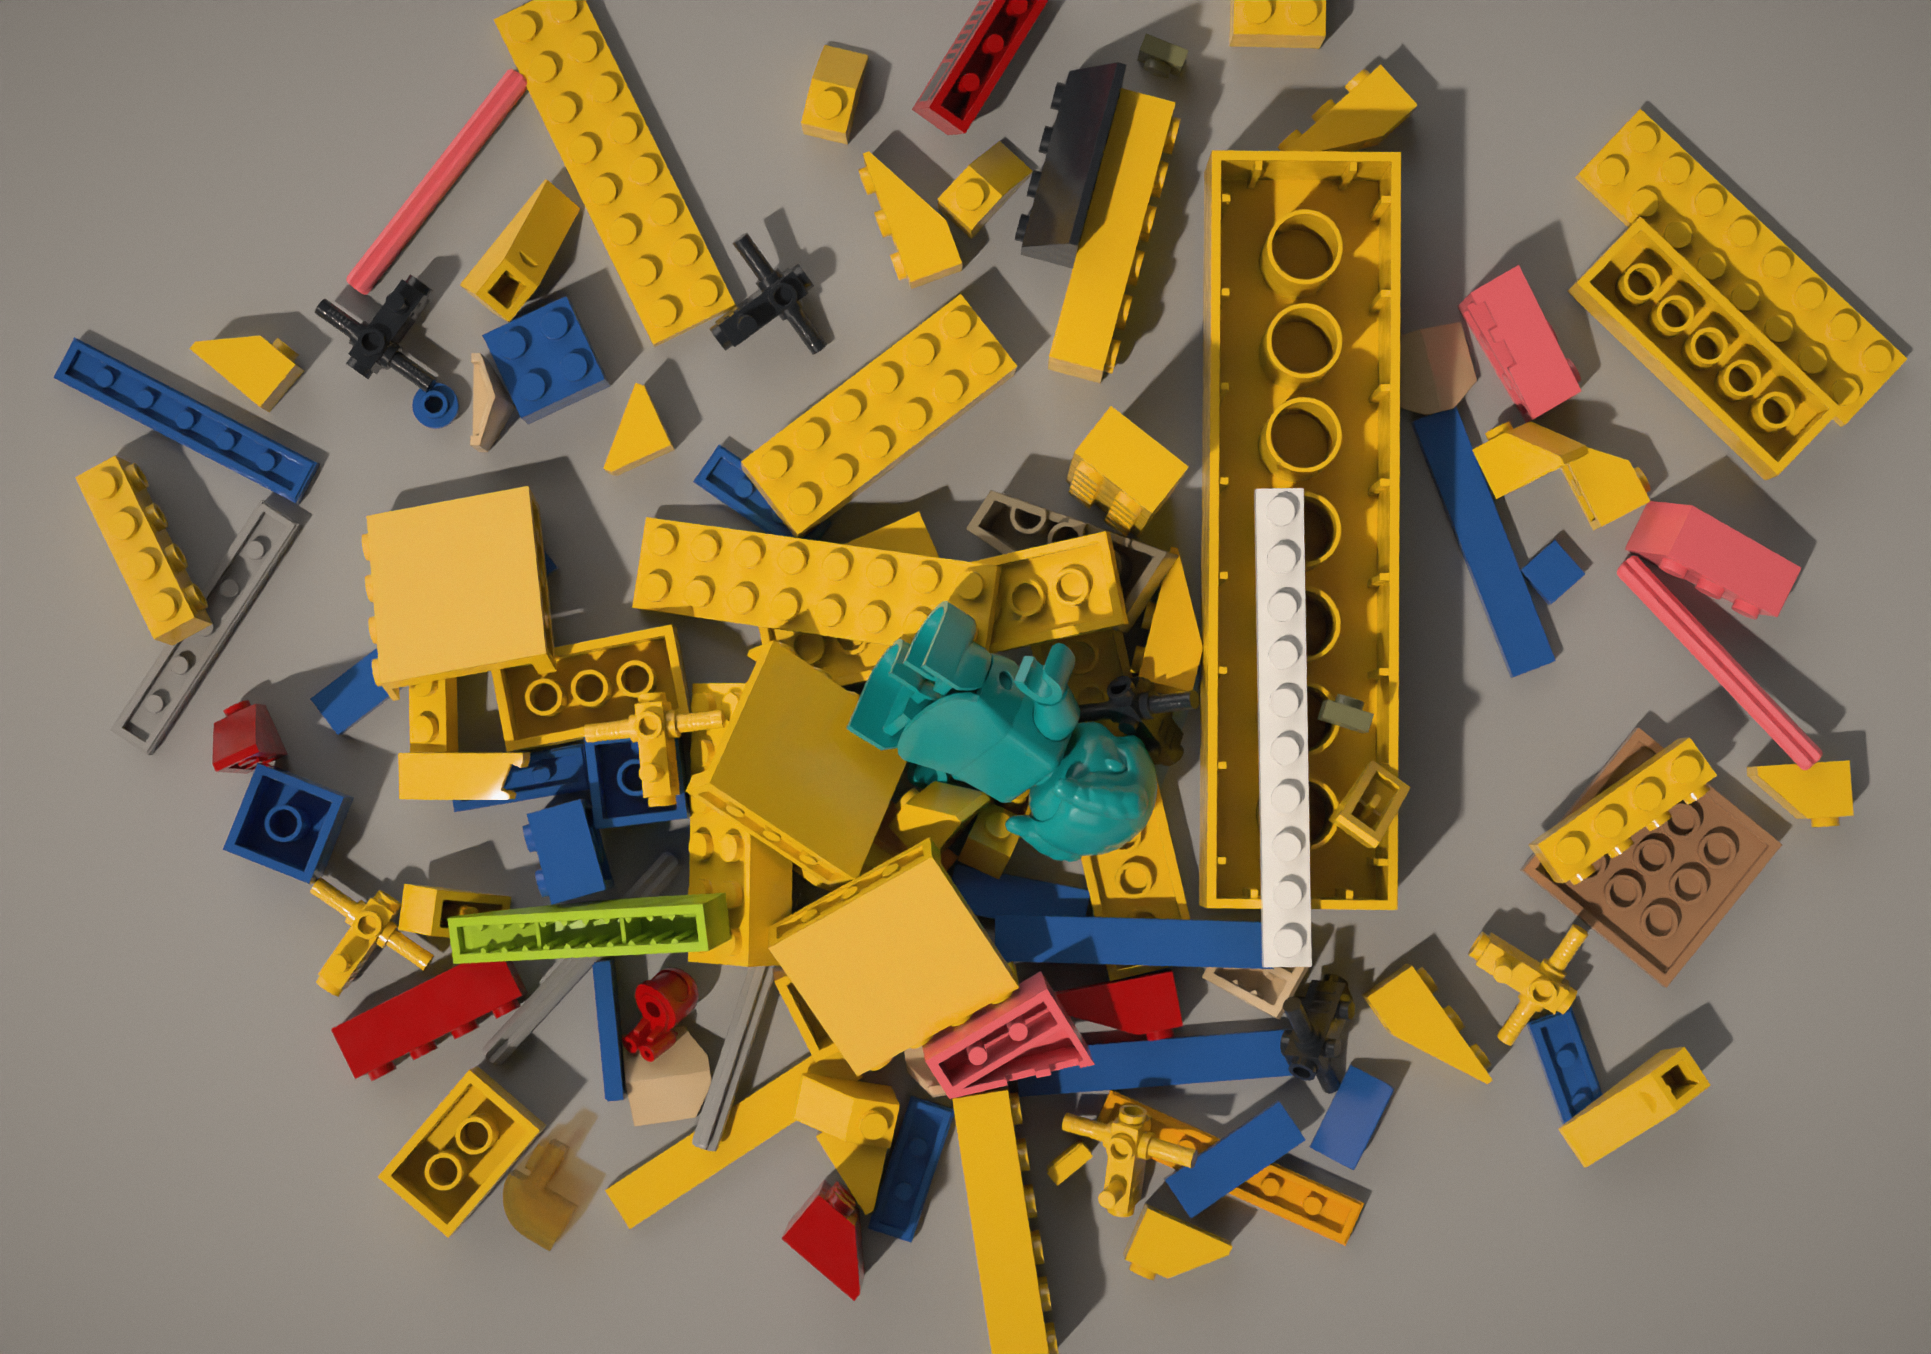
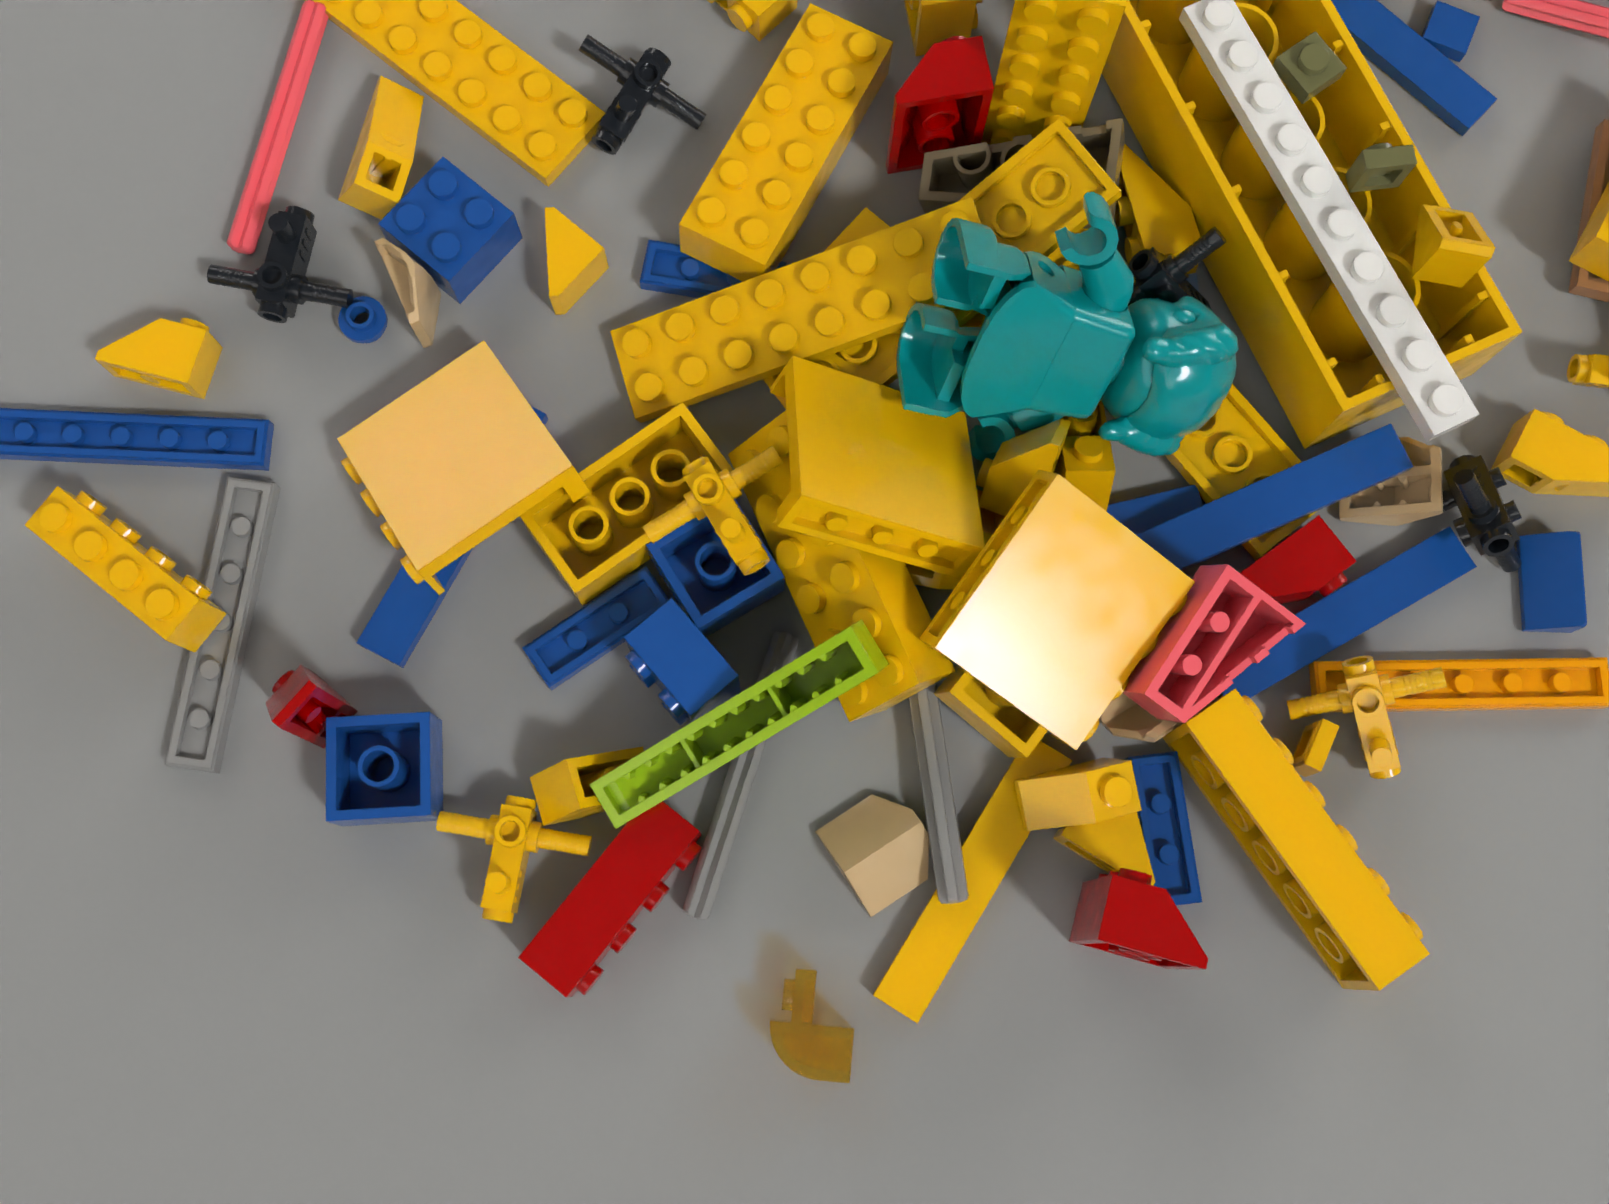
camera: 30 degrees left, 10 degrees down
(435, 766) = (510, 644): yellow wedge -> none
(462, 1151) = (709, 1023): yellow brick -> none
(609, 1029) = (802, 828): blue tile -> none
(663, 1004) = (844, 778): red piece -> none
(1023, 454) = (941, 103): none -> red slope
(1170, 1245) = (1452, 782): yellow slope -> none
(1235, 1159) = (1469, 669): blue tile -> none
(1340, 591) = (1309, 67): none -> olive plate

